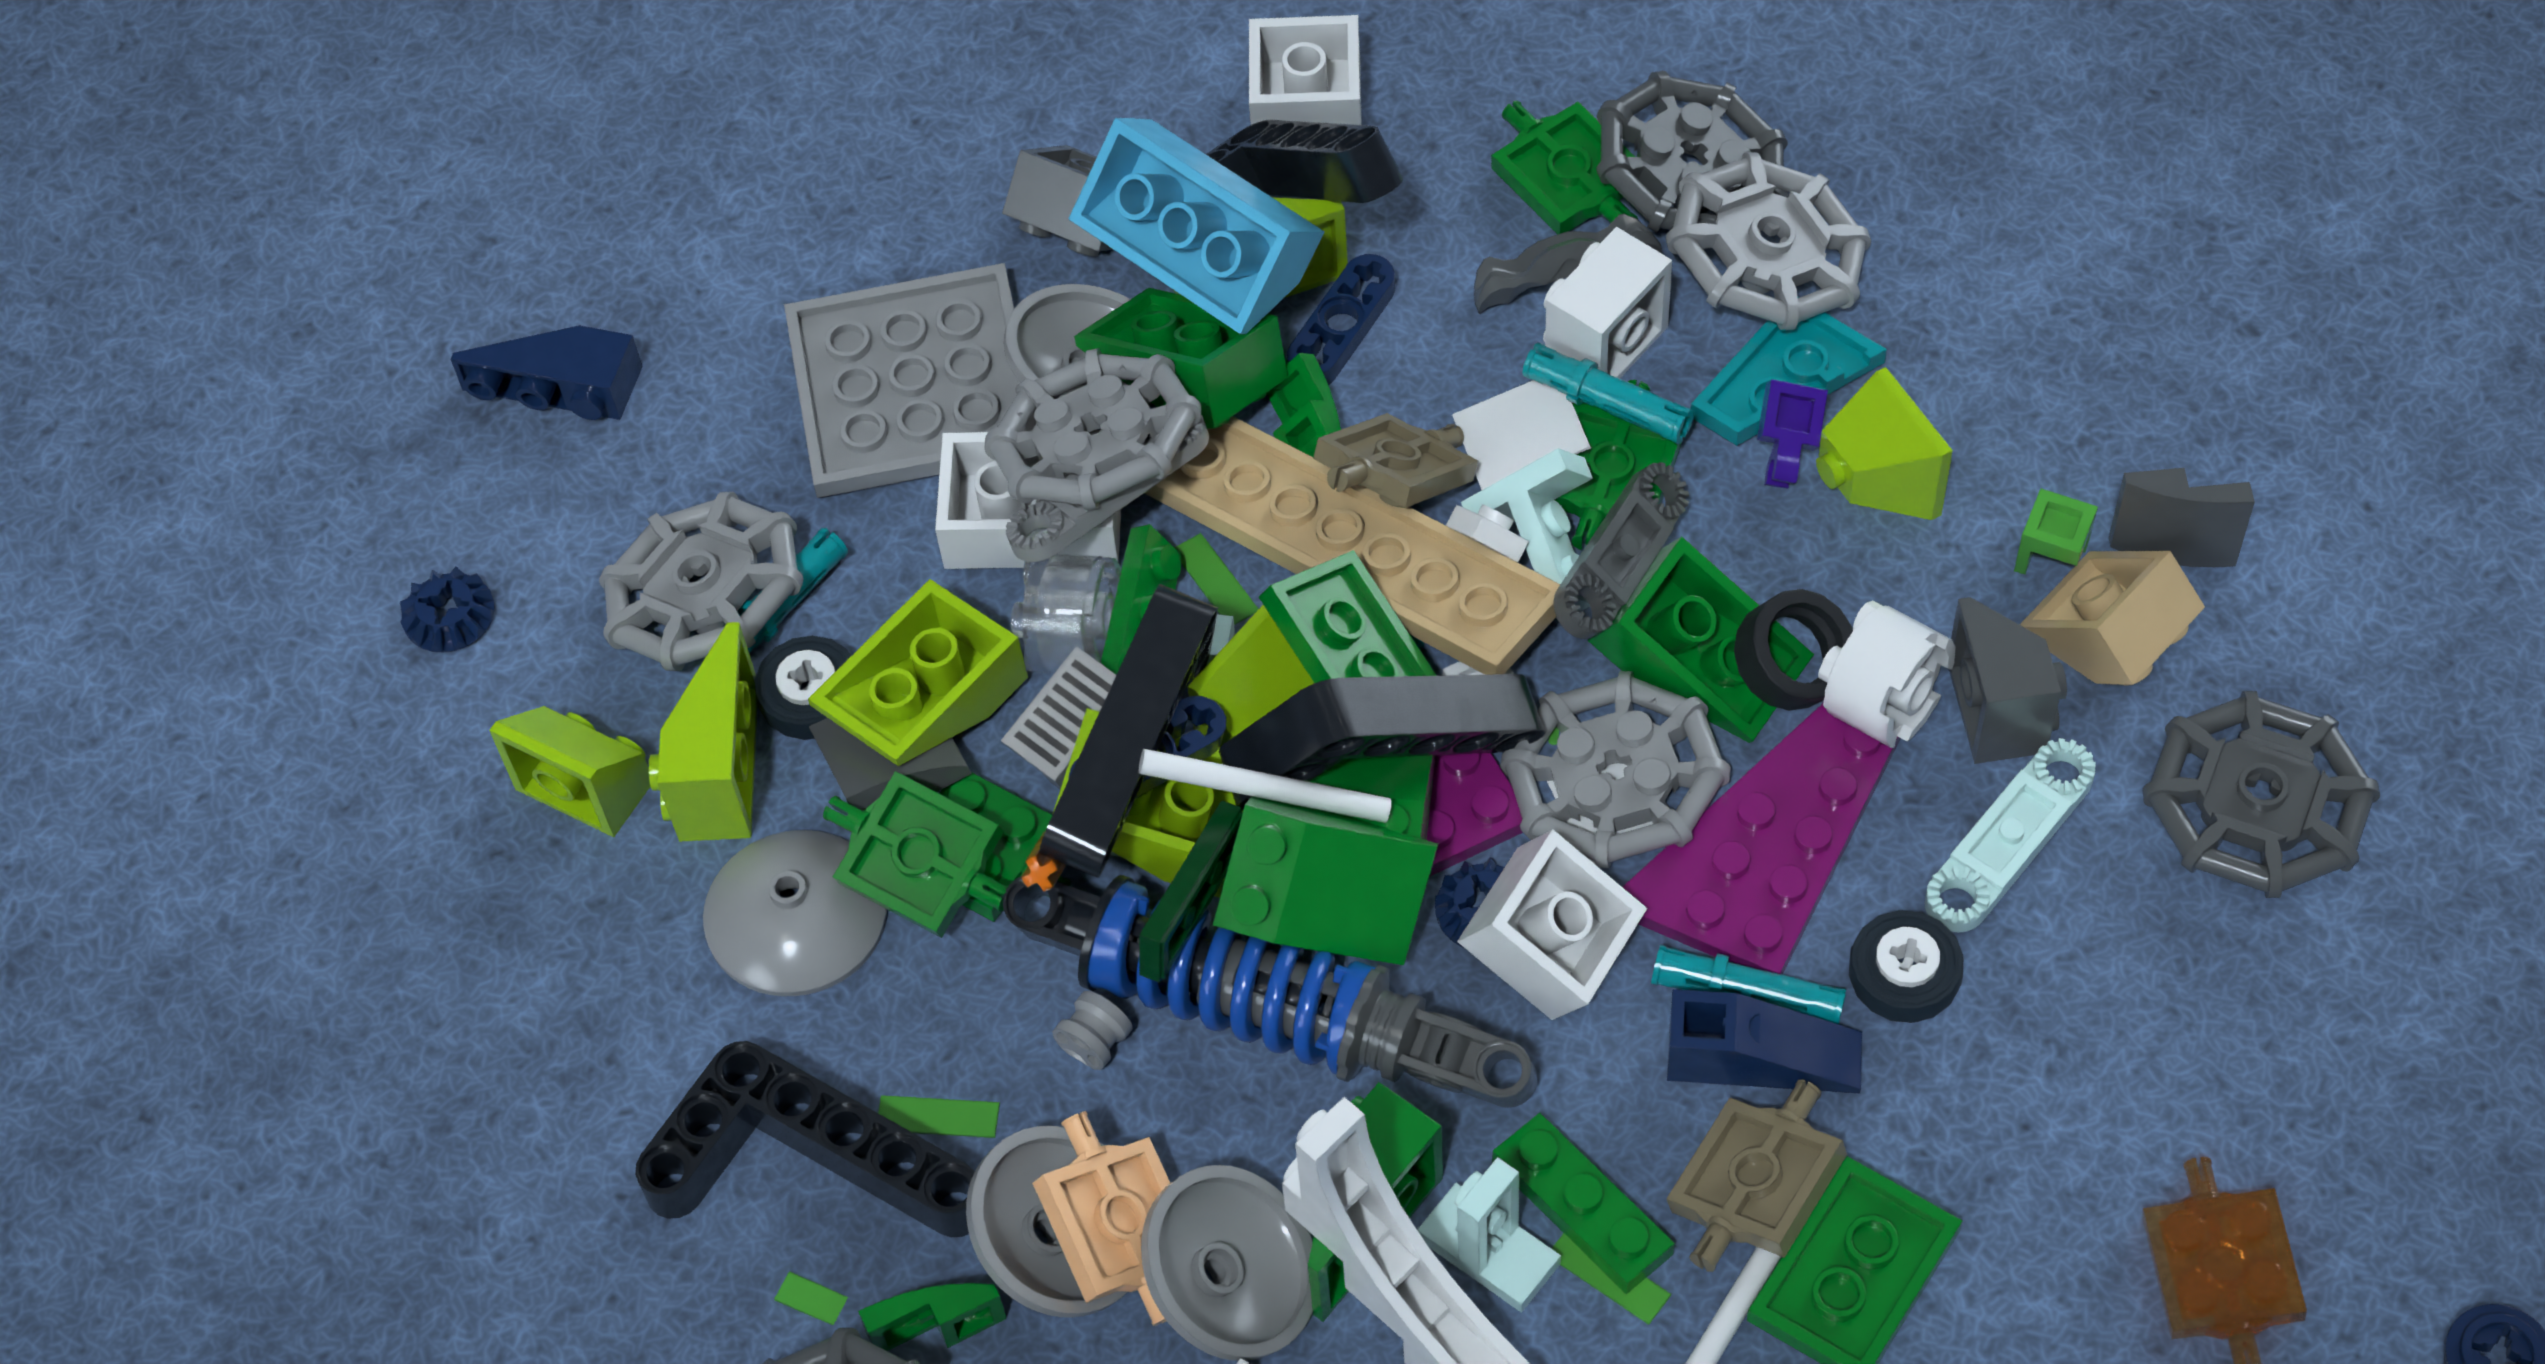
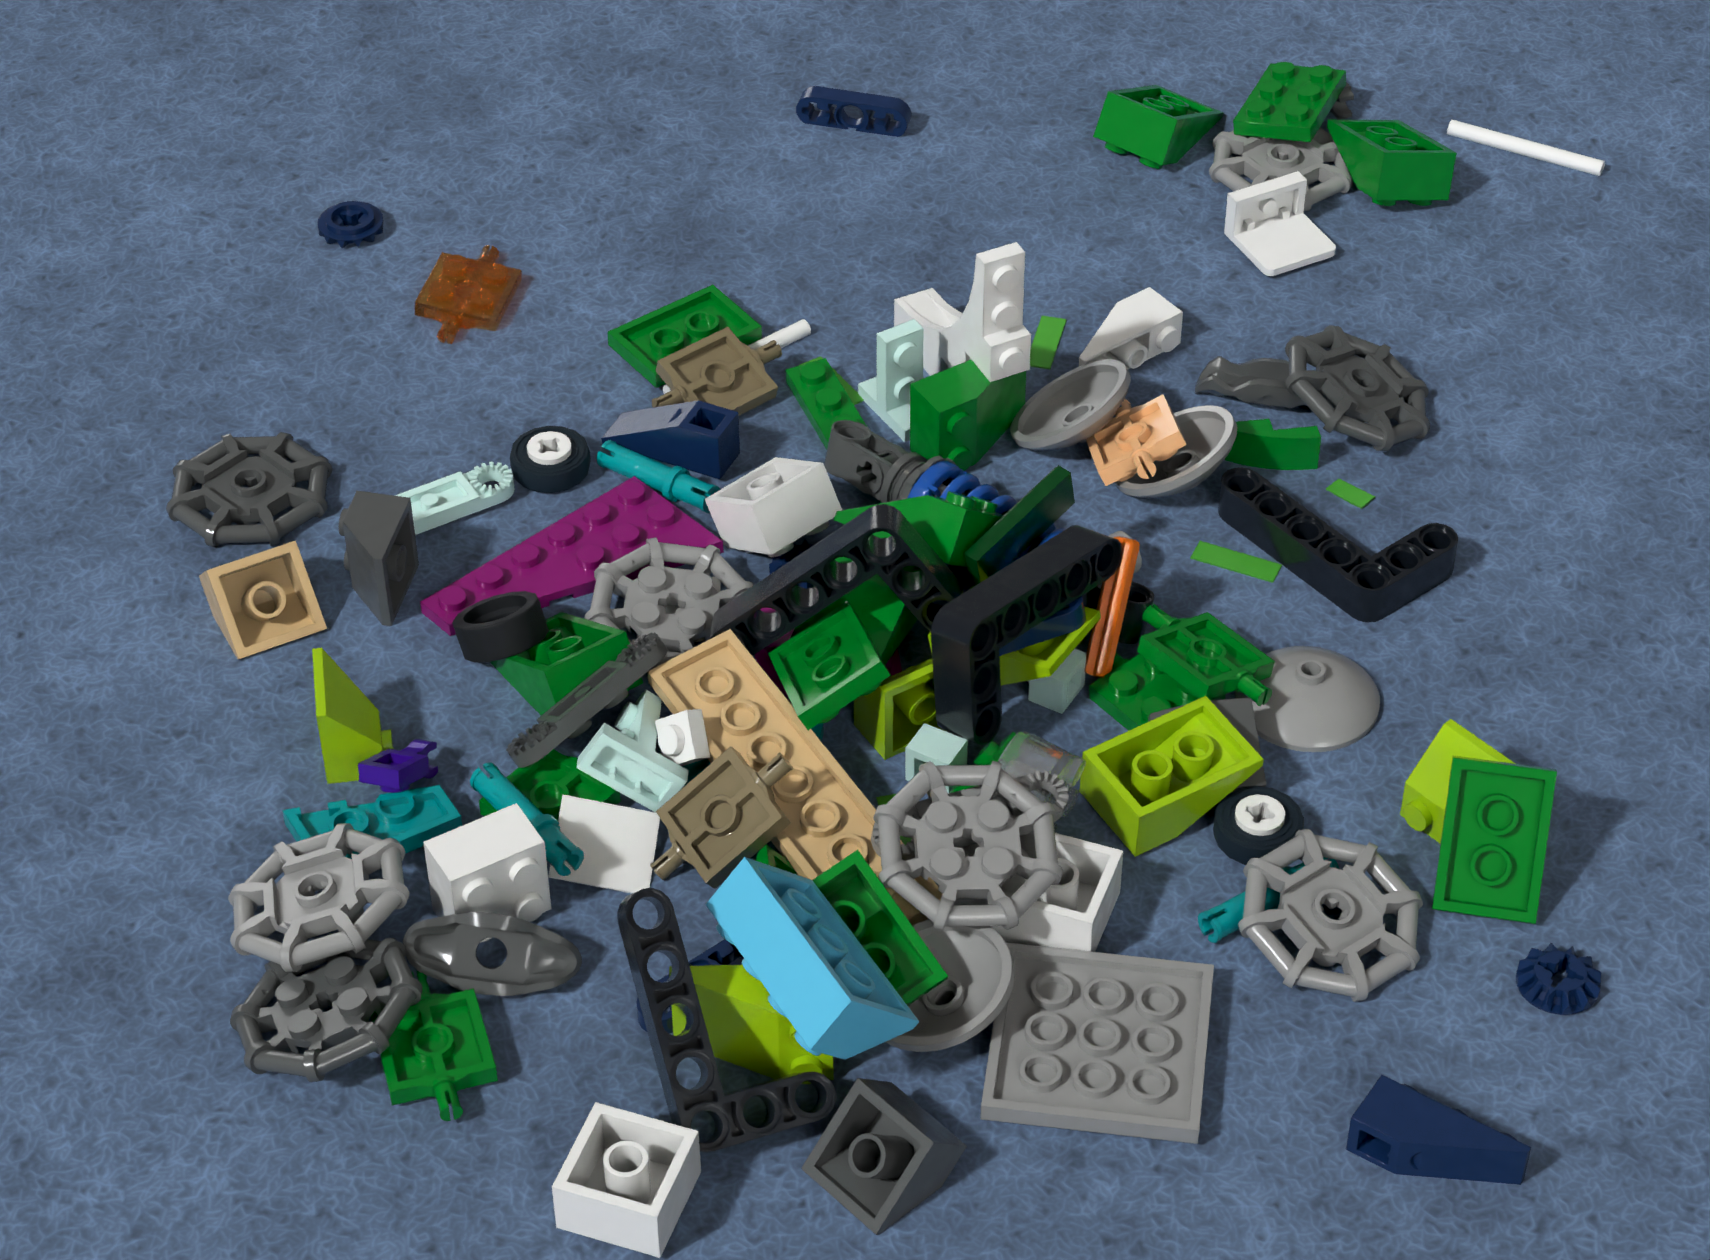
camera: 165 degrees left, 15 degrees down
(544, 684) = (1494, 839): none -> green plate
(710, 747) = (1352, 763): lime slope -> none
(1052, 721) = (1056, 712): light grey panel -> none
(1264, 785) = (975, 541): white bar -> none
(1885, 674) = (458, 555): white brick -> none
(2056, 529) = (263, 647): bright green panel -> none
(2195, 523) = (171, 612): dark grey slope -> none

